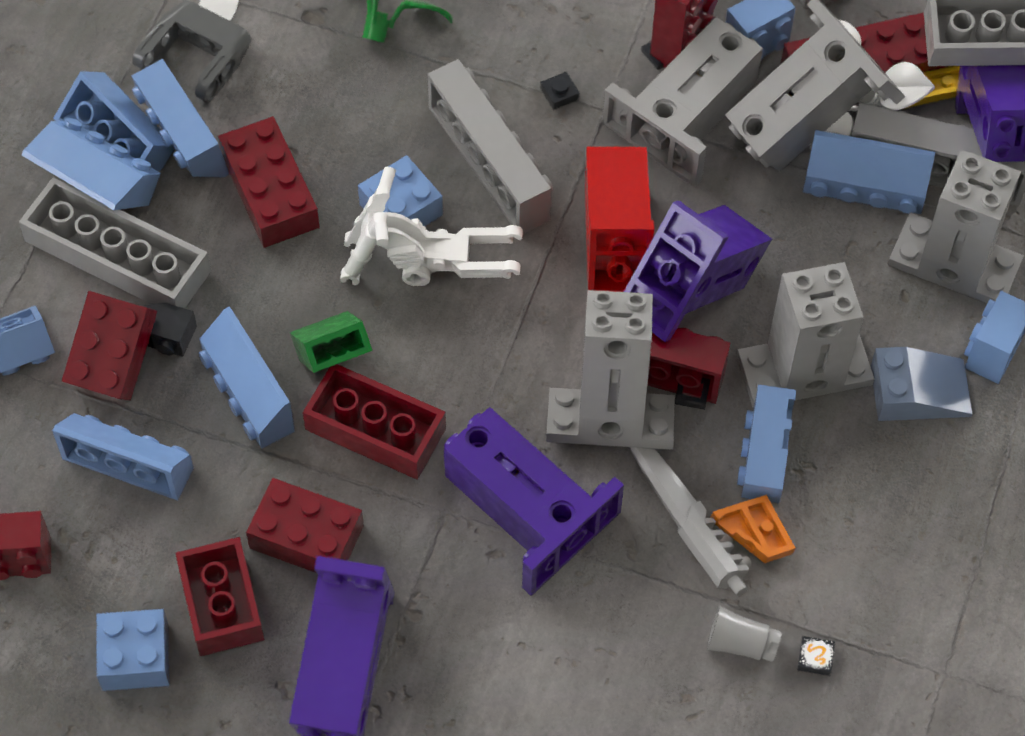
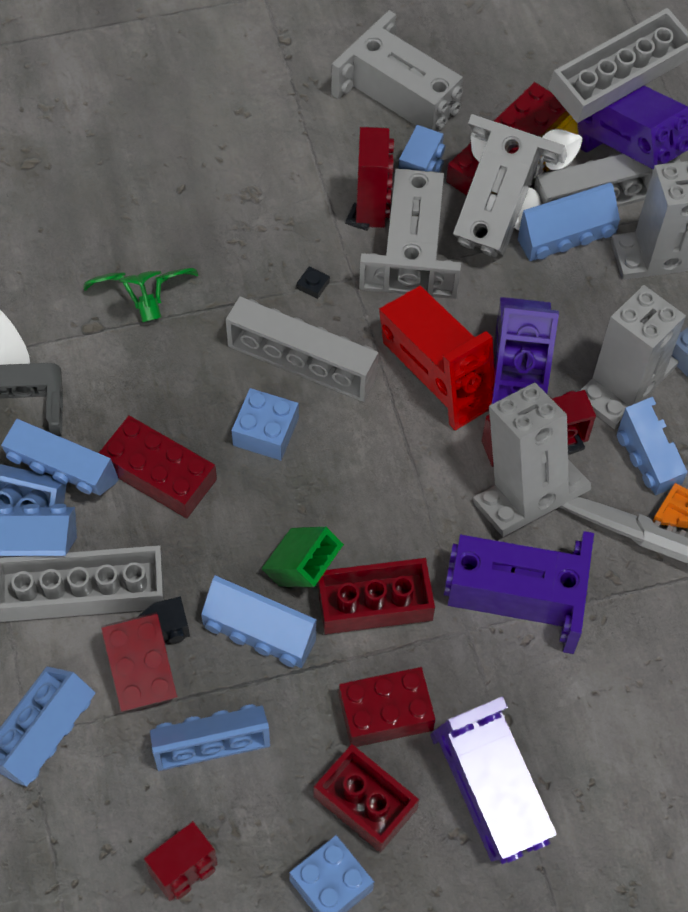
camera: 35 degrees left, 0 degrees up
(418, 249) = (309, 452): white piece -> none

